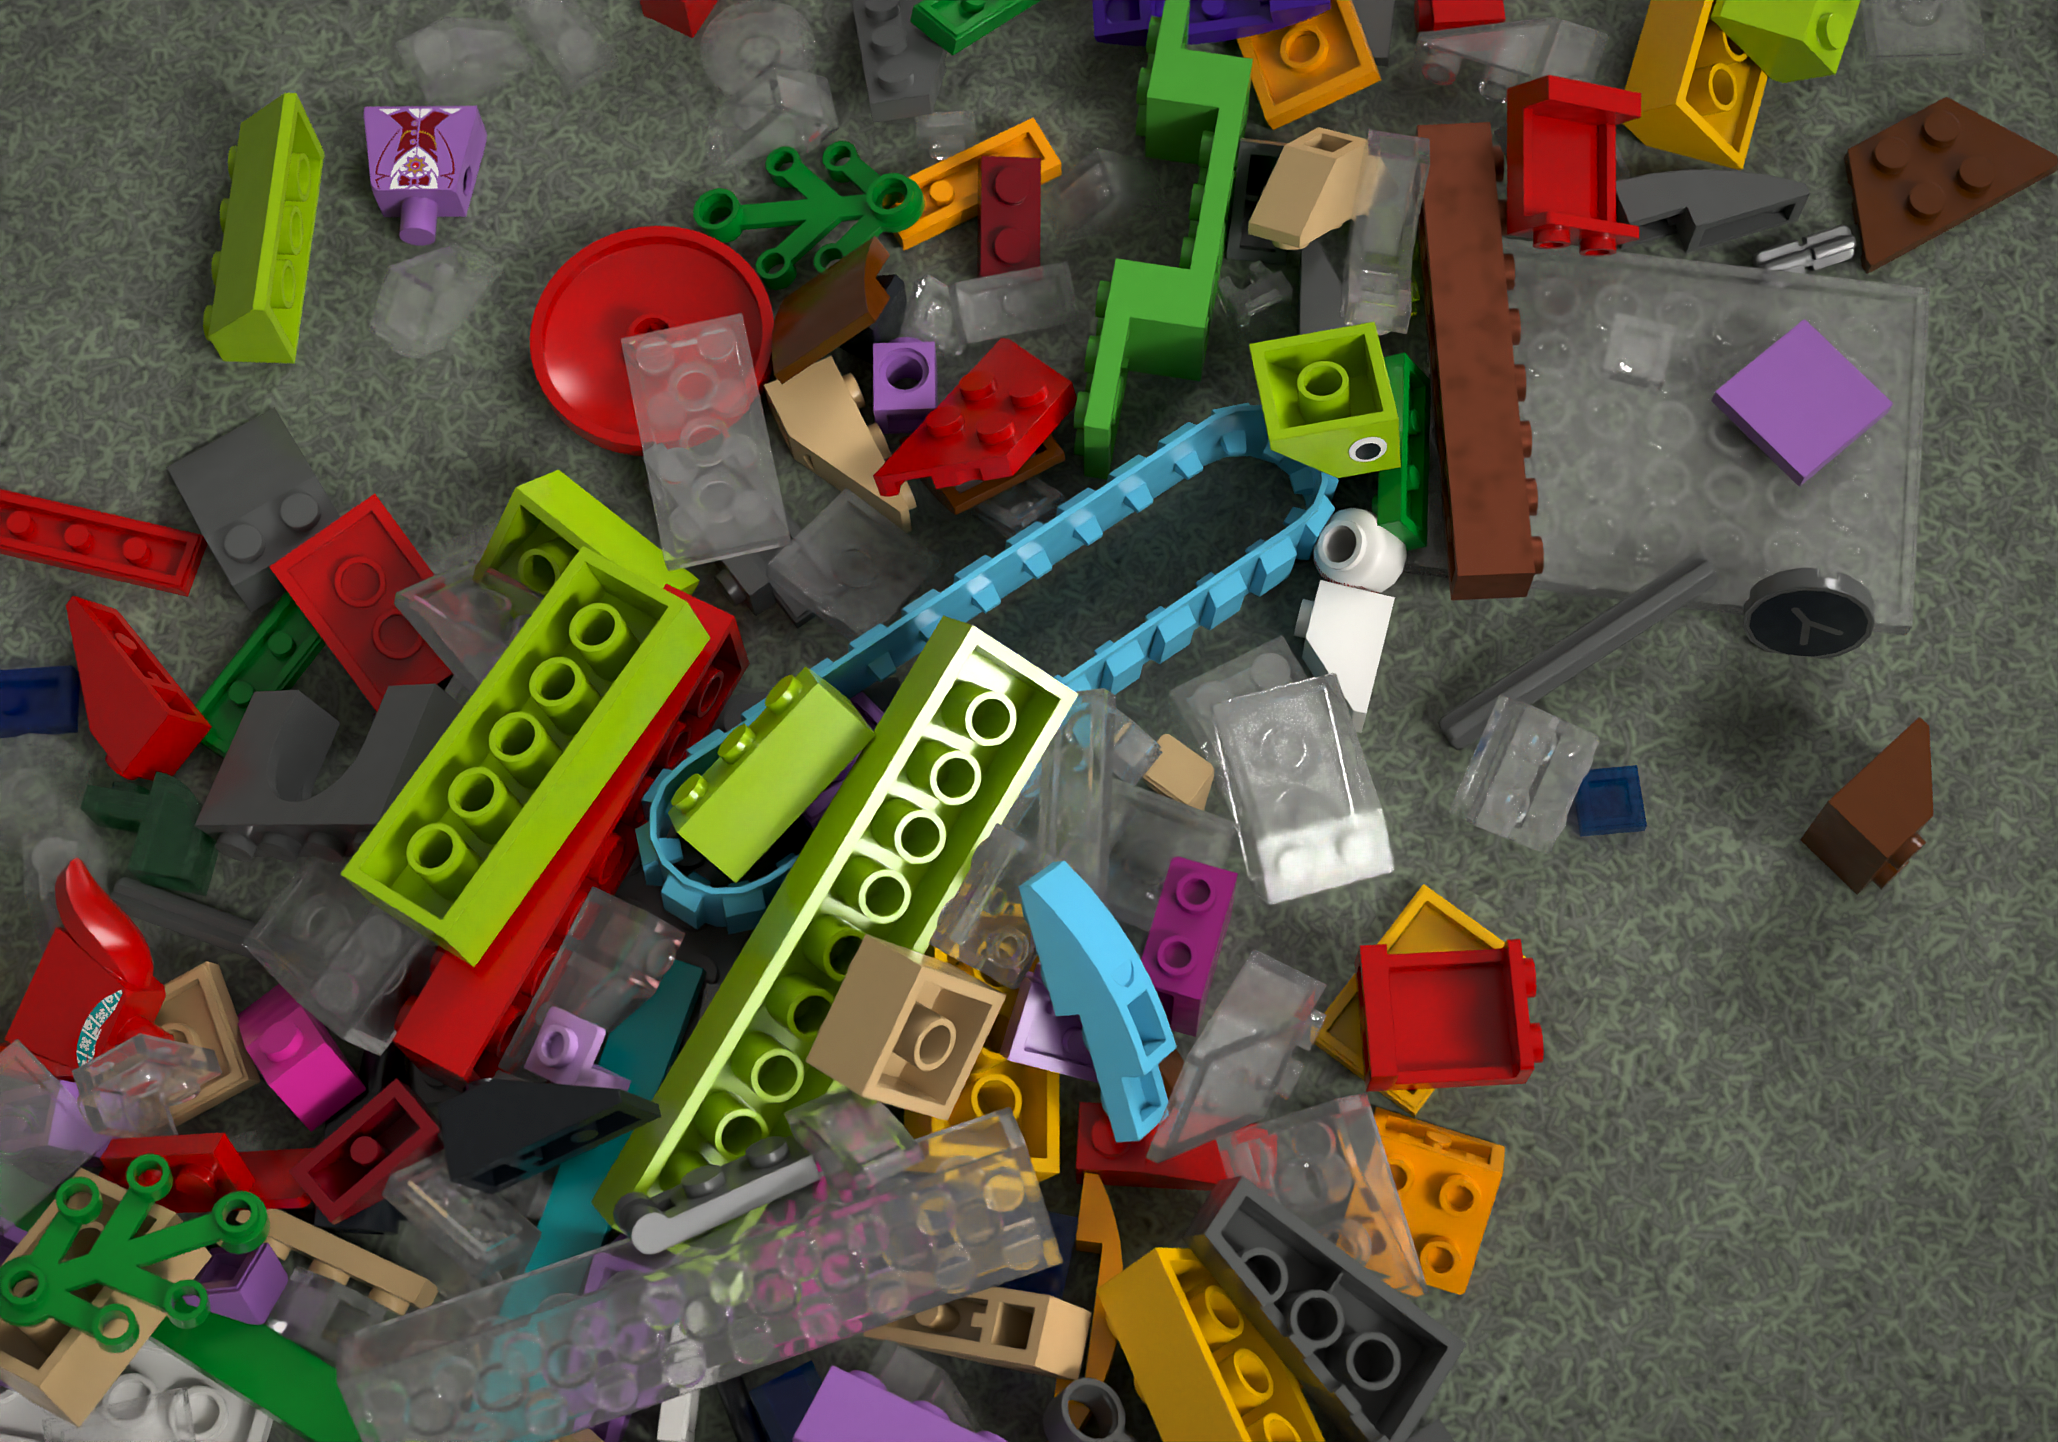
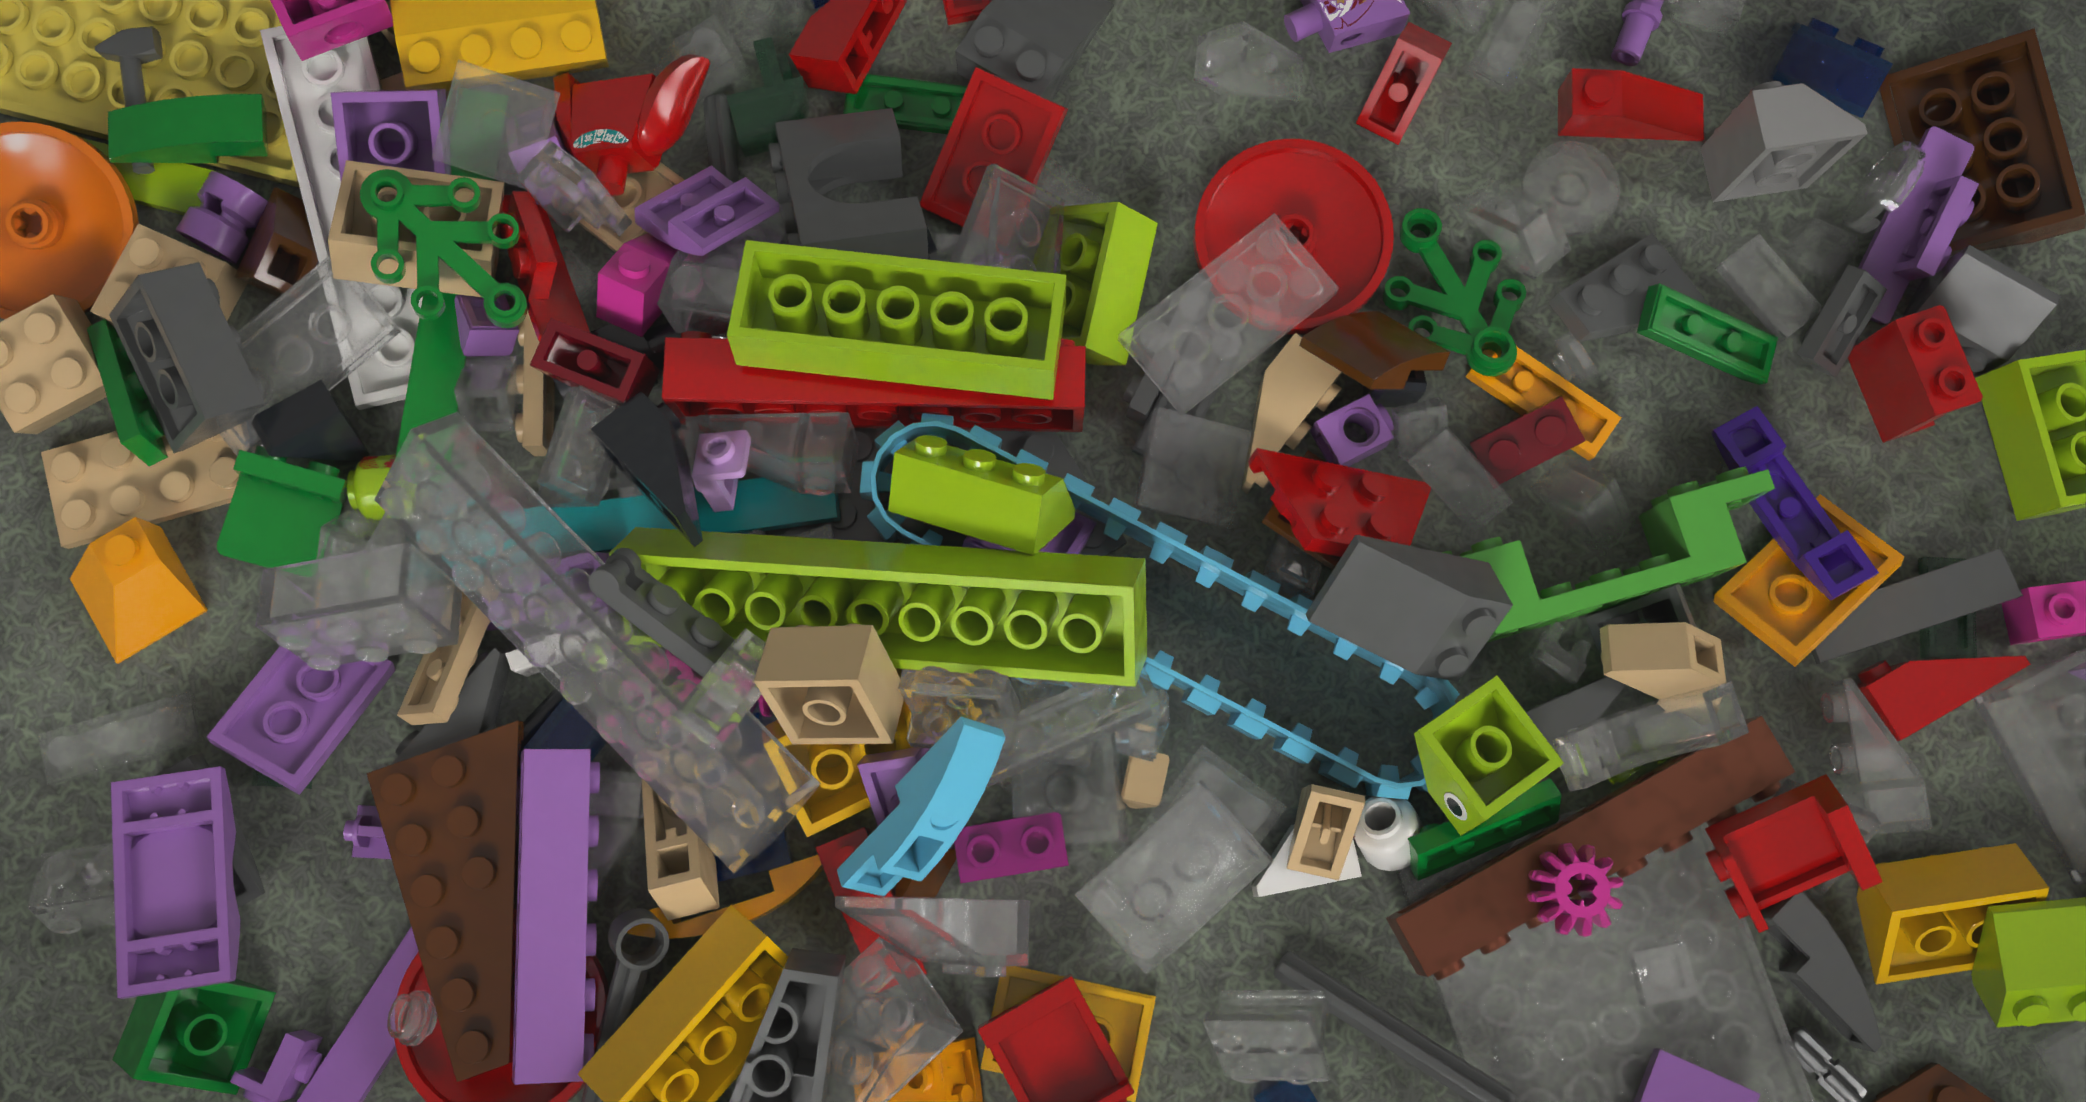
camera: 60 degrees right, 10 degrees up
(258, 949) = (704, 211): none -> medium lavender slope
(547, 153) = (1403, 82): none -> red slope
(1133, 390) = (1412, 605): none -> dark grey slope
(1325, 602) = (1324, 830): none -> tan slope
(1511, 378) = (1593, 890): none -> dark pink gear

